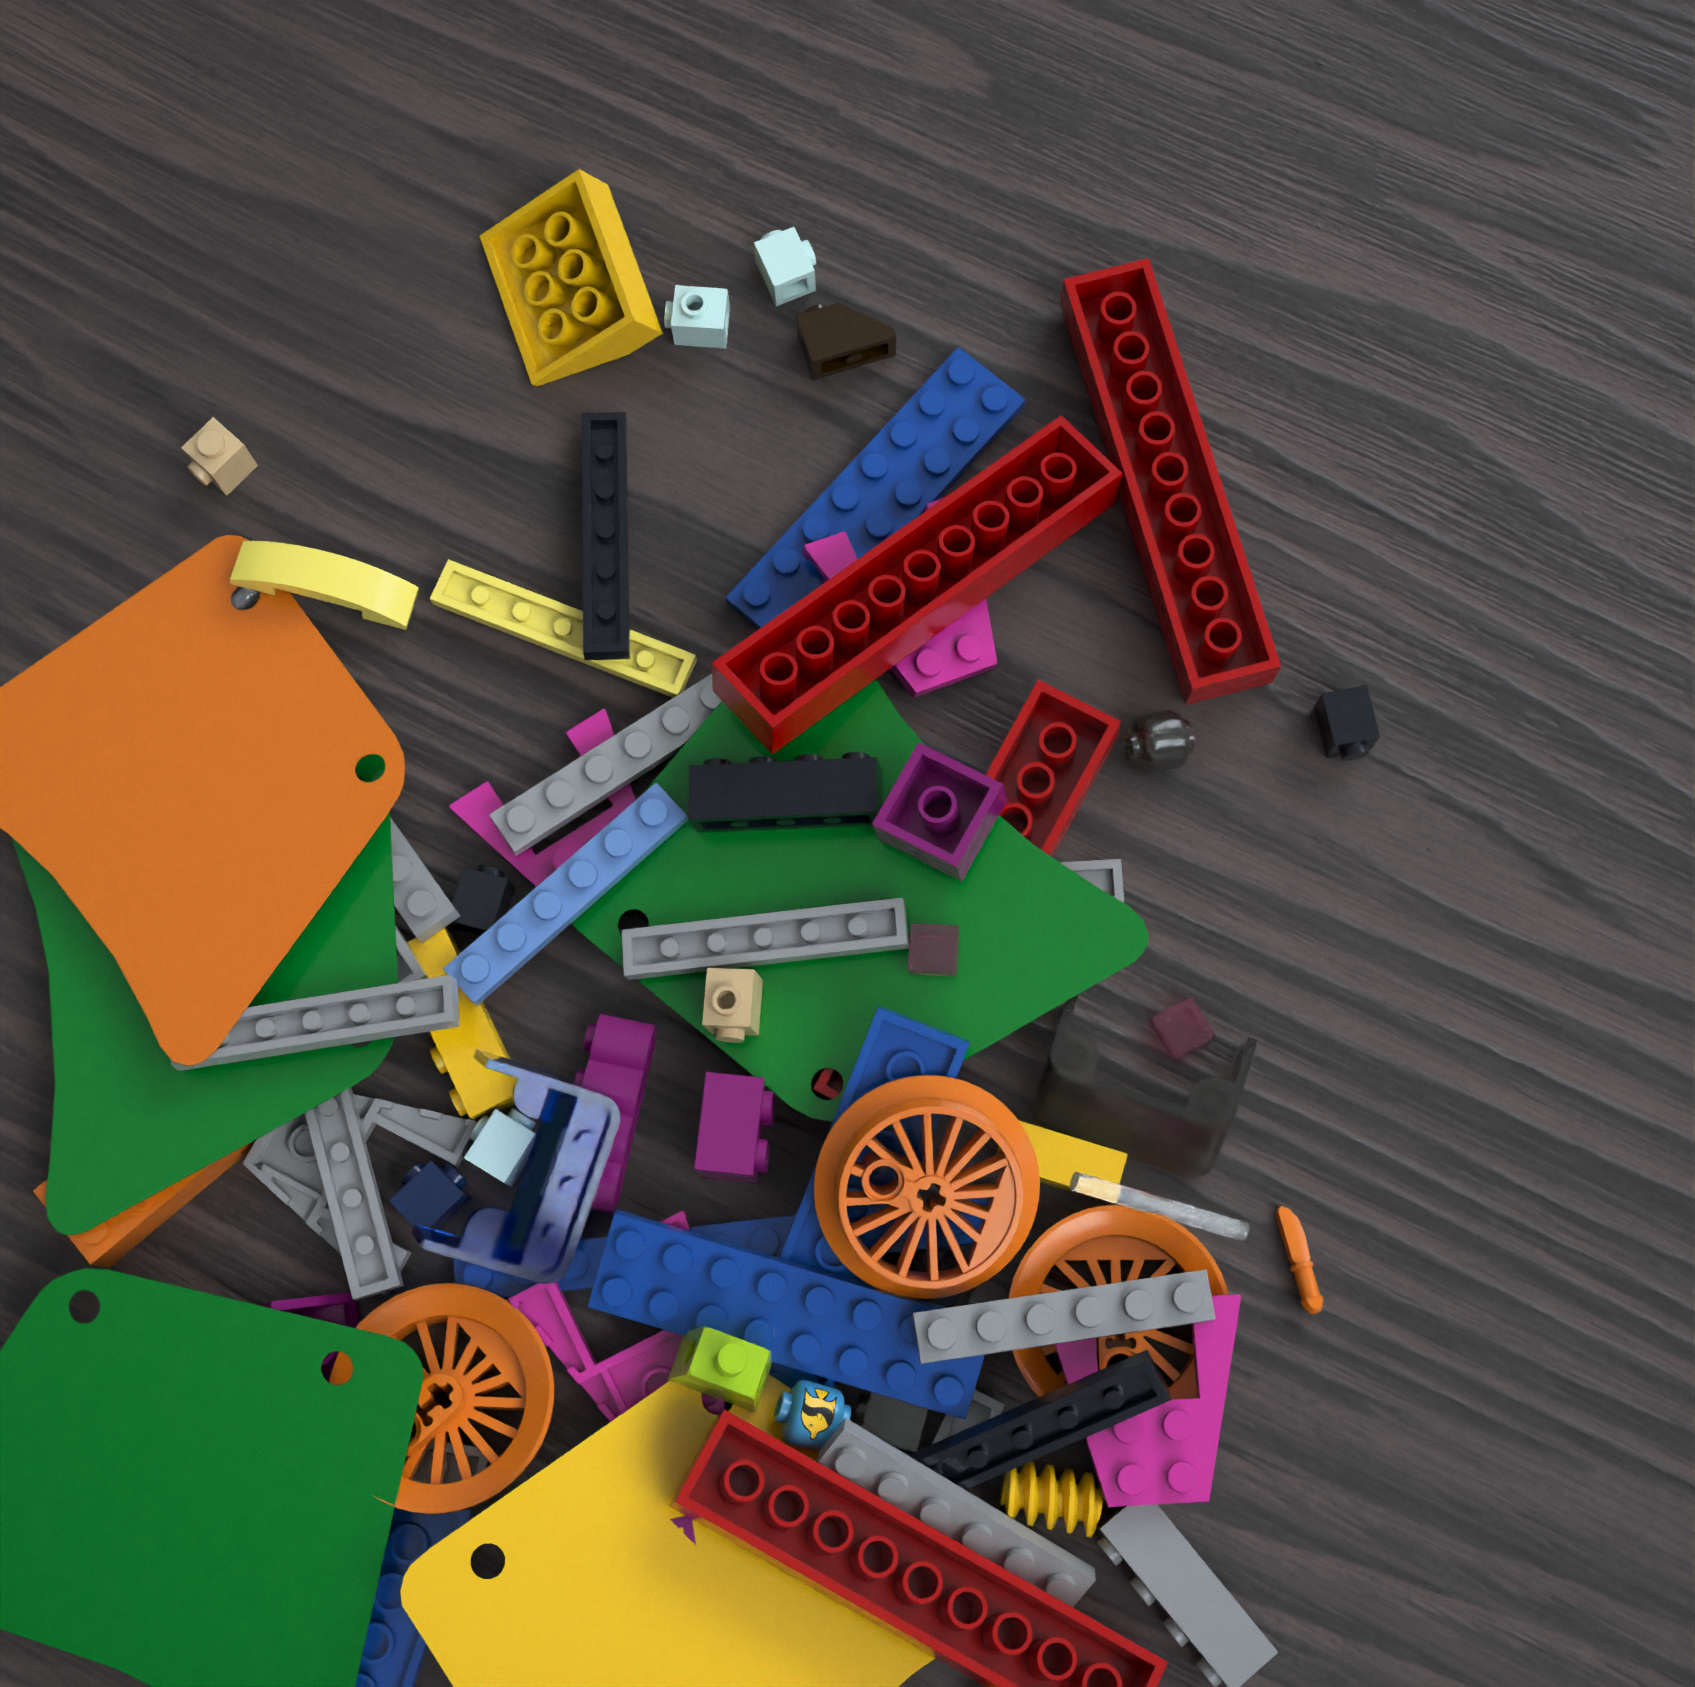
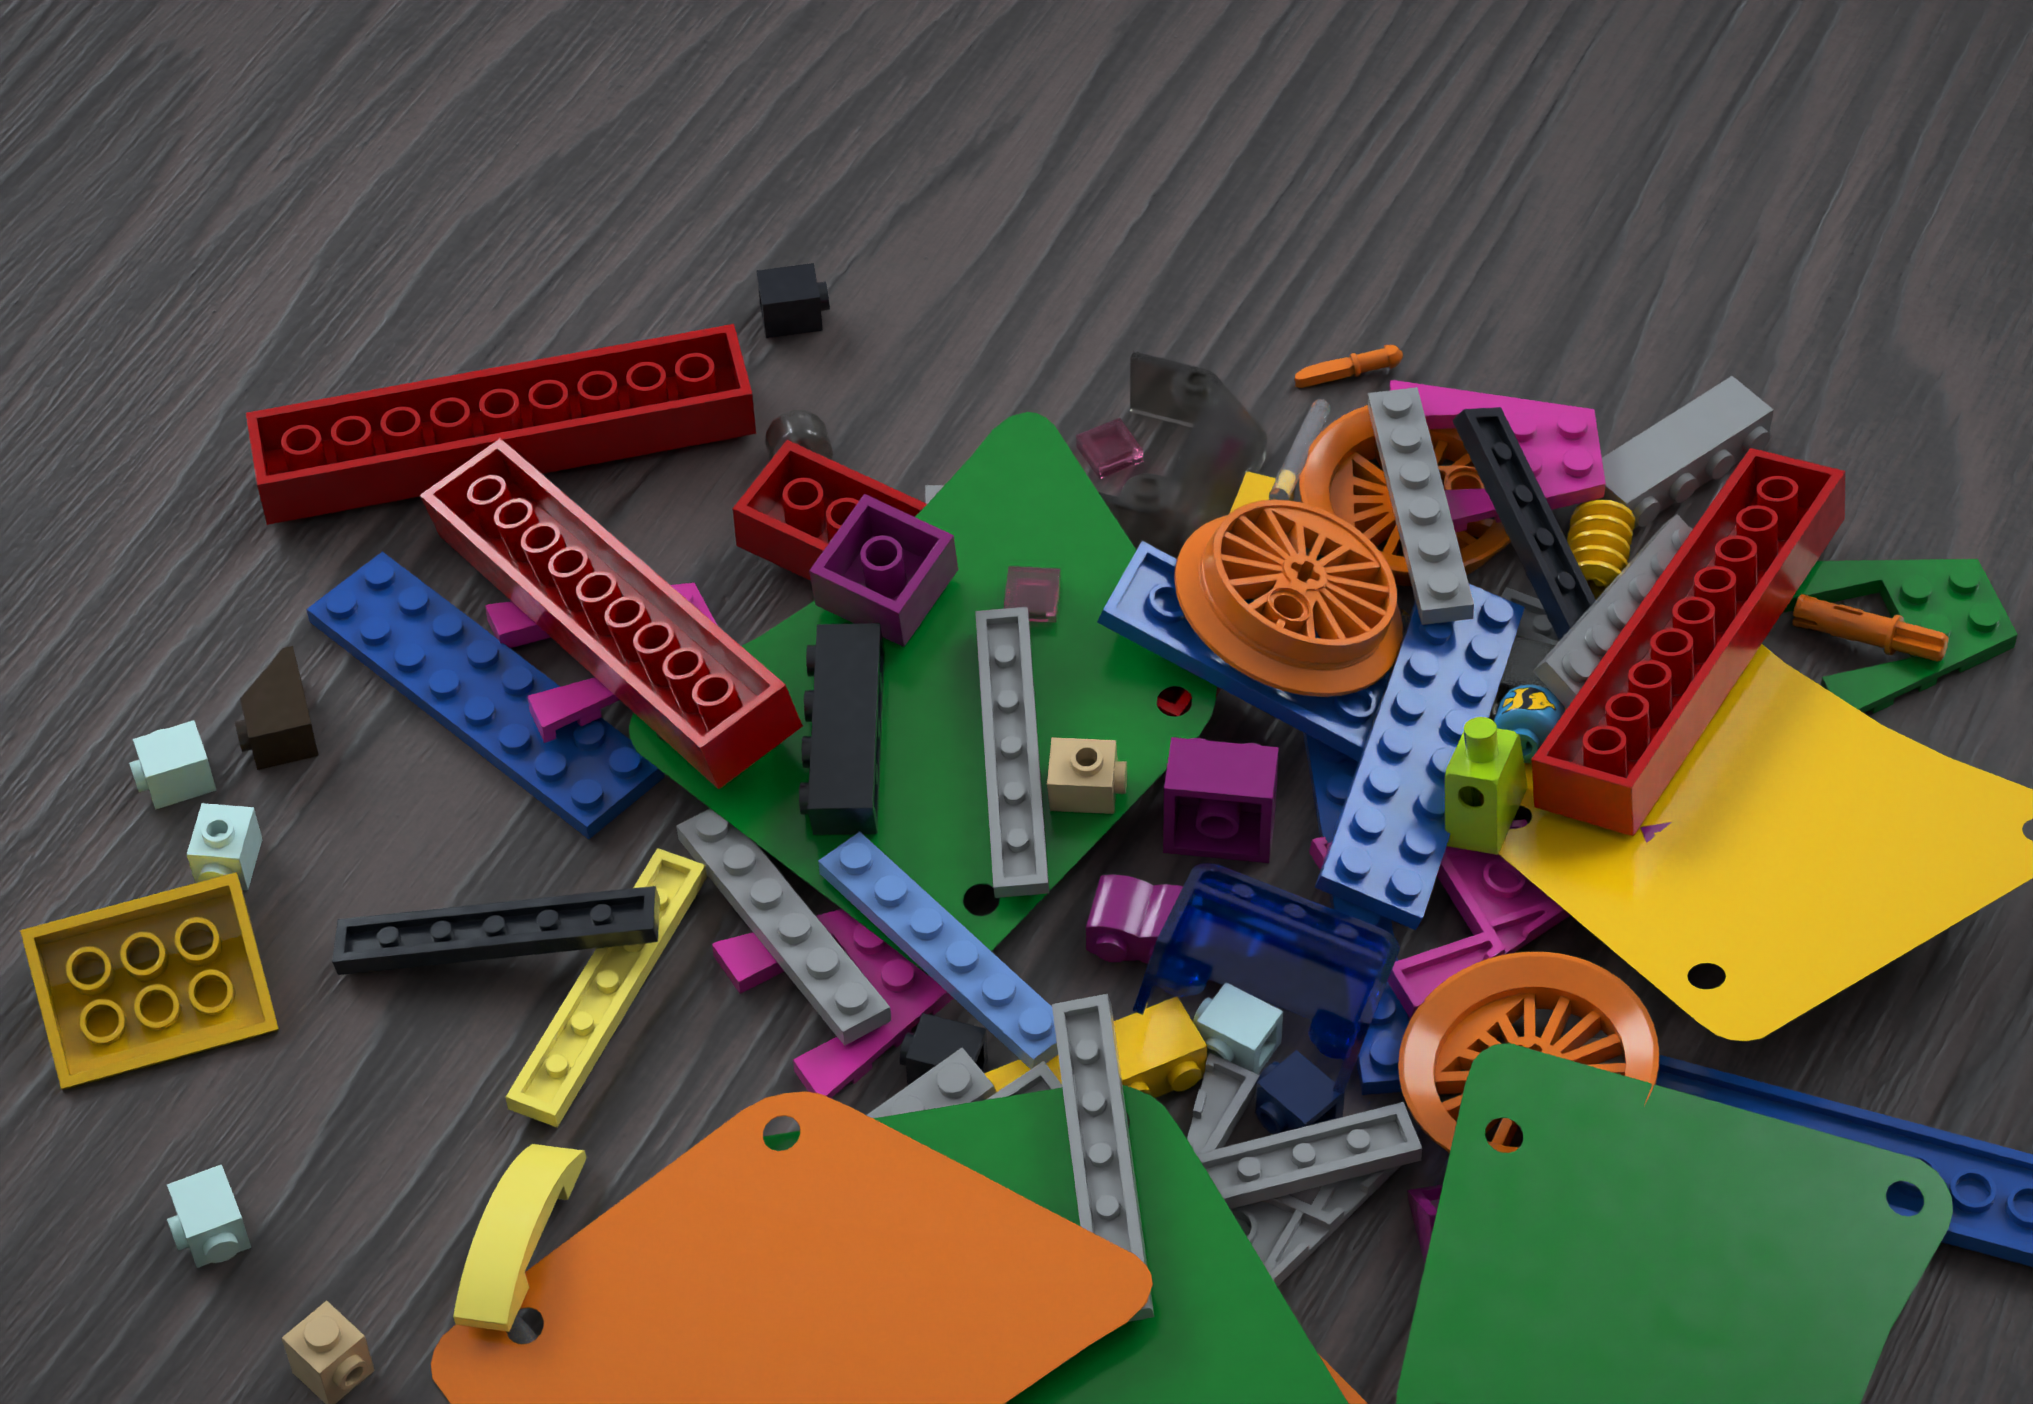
camera: 90 degrees left, 25 degrees down
(346, 356) = (207, 1217): none -> light aqua brick

